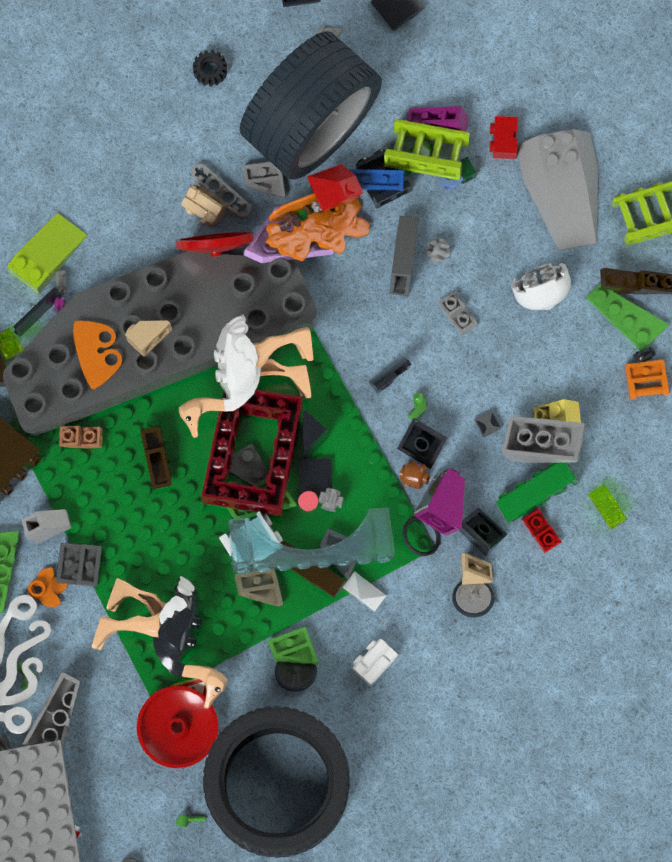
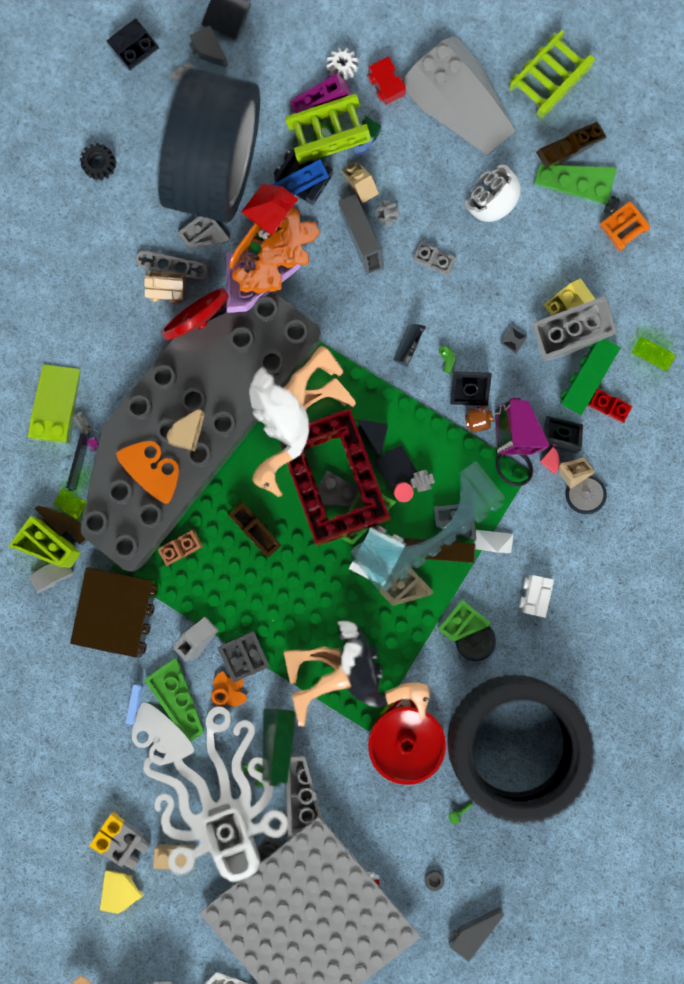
camera: 25 degrees left, 10 degrees up
(62, 655) = (277, 745): none -> dark green slope
(363, 23) = (207, 47): none -> dark grey slope
(430, 210) = (360, 181): none -> tan slope
(458, 548) = (551, 460): none -> coral tile
(480, 105) = (348, 60): none -> white gear

